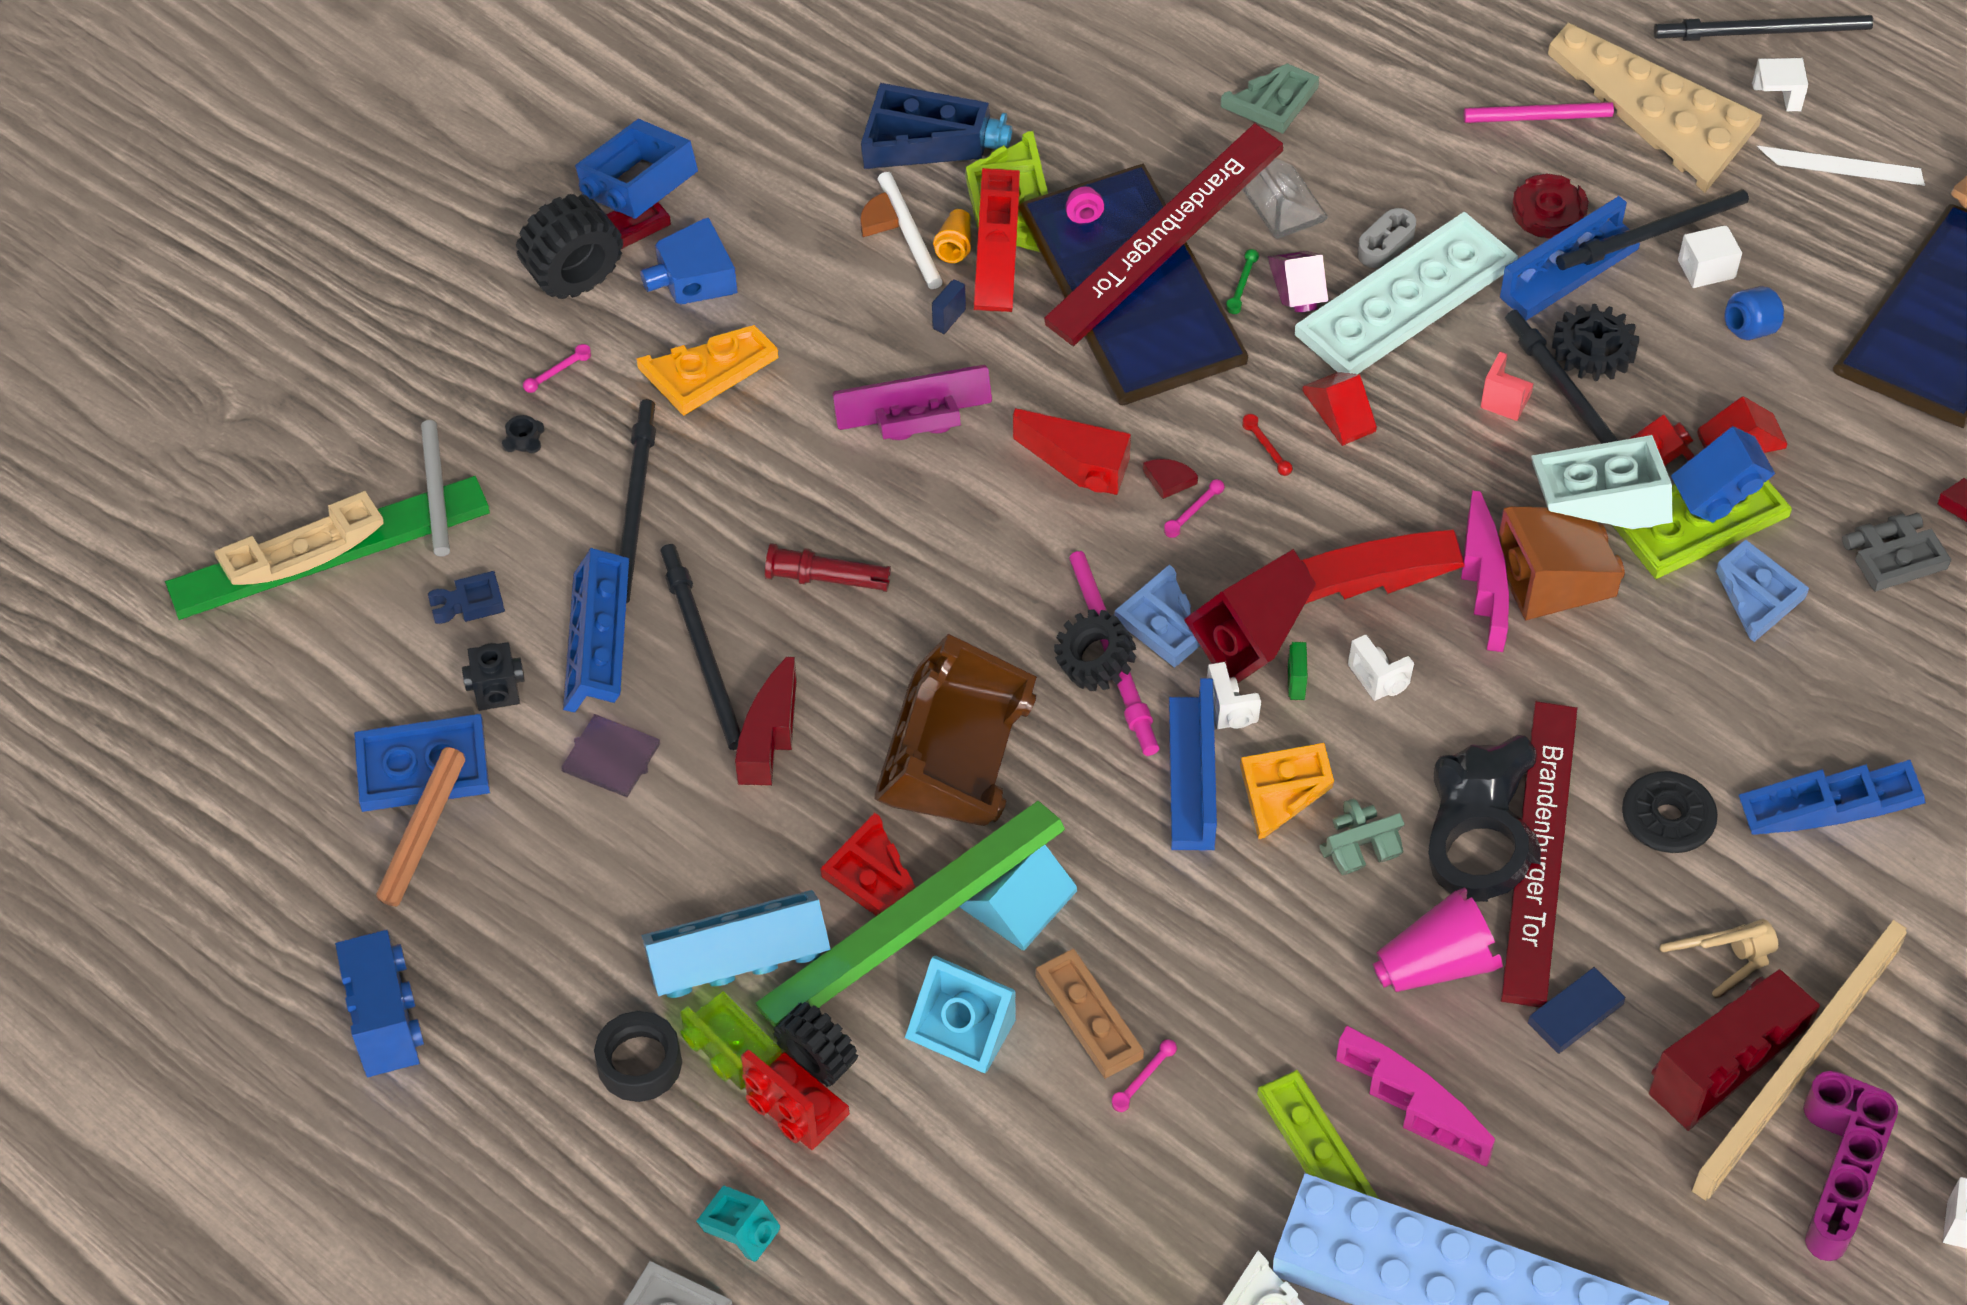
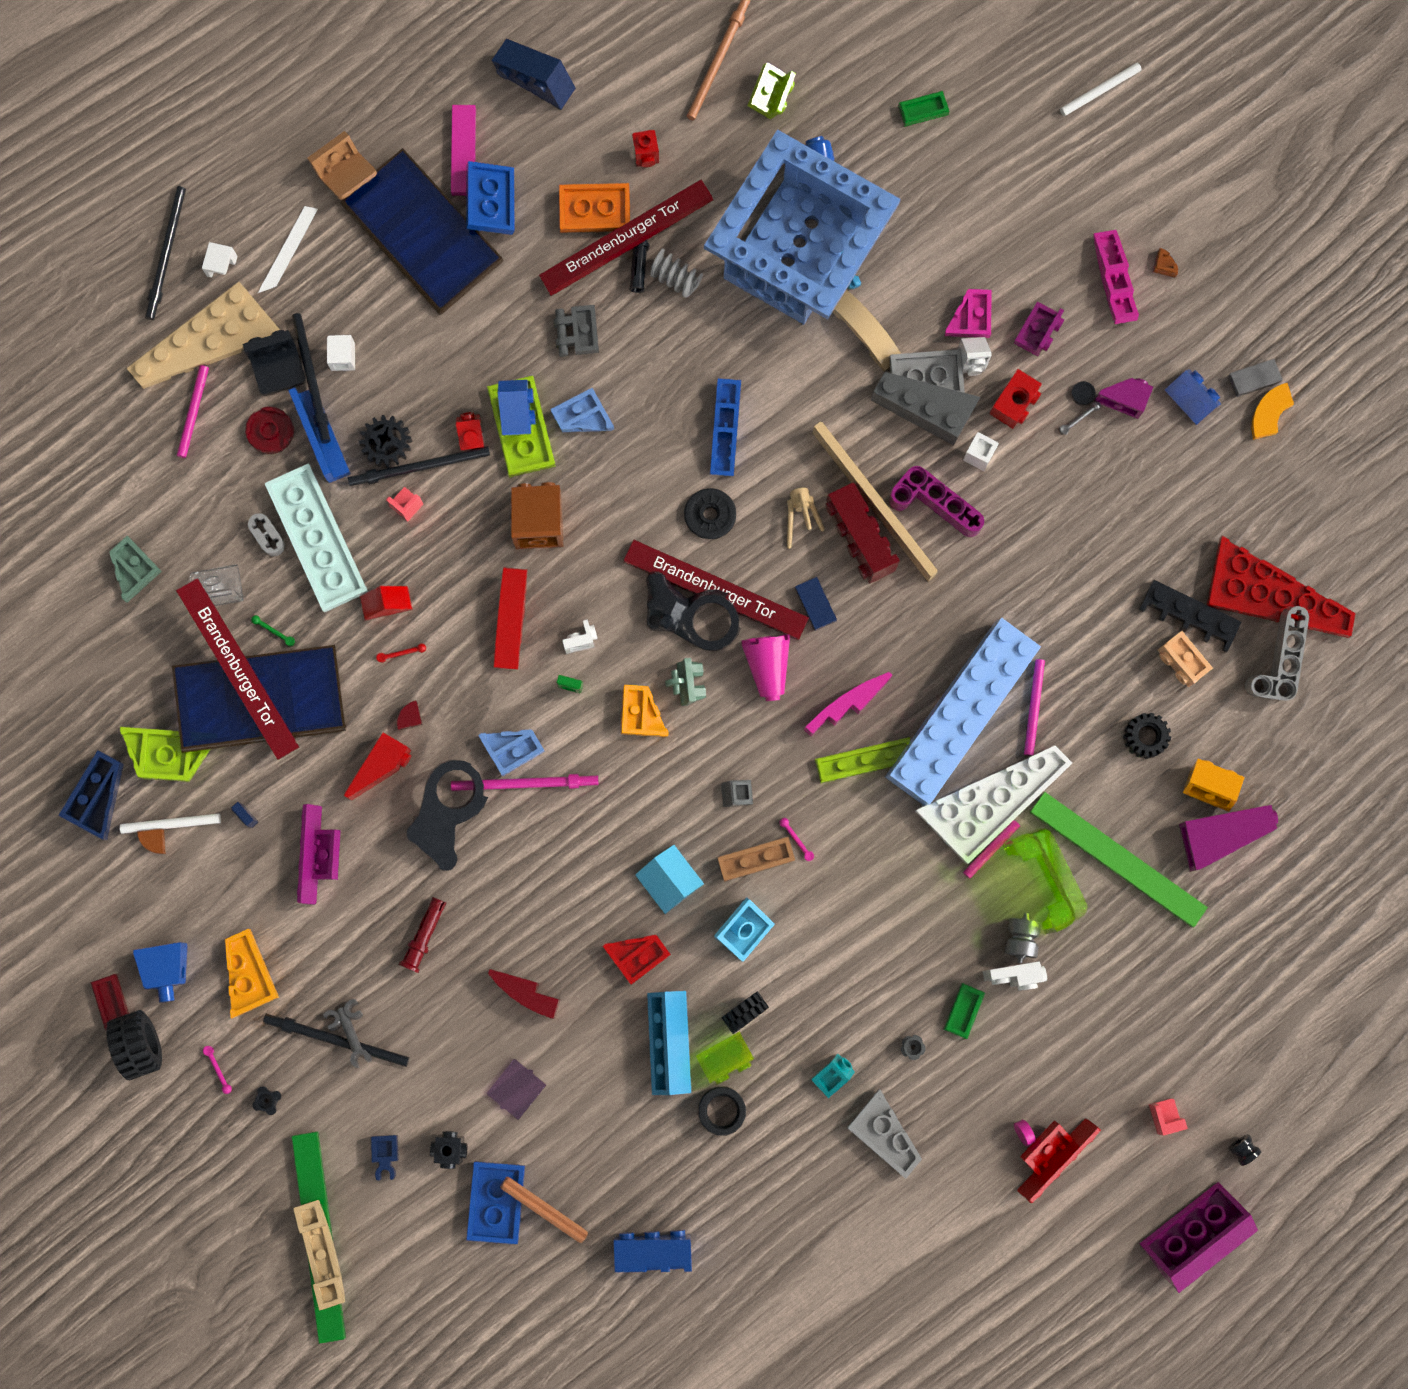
camera: 80 degrees left, 25 degrees up
(435, 488) = (301, 1163): light grey bar -> none
(596, 629) = (431, 1082): blue fence -> none
(664, 499) = (343, 1017): none -> flat silver bar
(671, 166) = (55, 998): blue window -> none
(680, 584) = (405, 1024): black bar -> none
(792, 1097) = (768, 1030): red bracket -> none
(914, 913) = (678, 941): bright green tile -> none
(954, 237) = (189, 798): light orange cone -> none
(955, 734) = (563, 890): reddish brown windscreen -> none
(997, 240) = (203, 771): red slope -> none
(998, 133) = (111, 748): dark azure plate -> none
(1012, 534) = (436, 823): none -> black animal
(1084, 205) = (200, 712): dark pink plate -> none
(1105, 667) = (520, 806): black tyre -> none
(1172, 527) = (446, 725): dark pink hinge -> none
(1193, 770) = (617, 760): blue fence -> none
(1197, 964) = (737, 793): none -> dark grey slope
(1229, 707) = (573, 729): white bracket -> none
(1253, 616) = (535, 698): dark red slope -> none
(1299, 279) = (285, 597): slope -> none
(1486, 565) = (523, 556): dark pink slope -> none
(1608, 483) = (499, 473): light aqua slope -> none
(1662, 181) = (275, 362): none -> black bracket
(1749, 418) = (472, 383): red slope -> none
(1754, 313) = (391, 343): blue head -> none

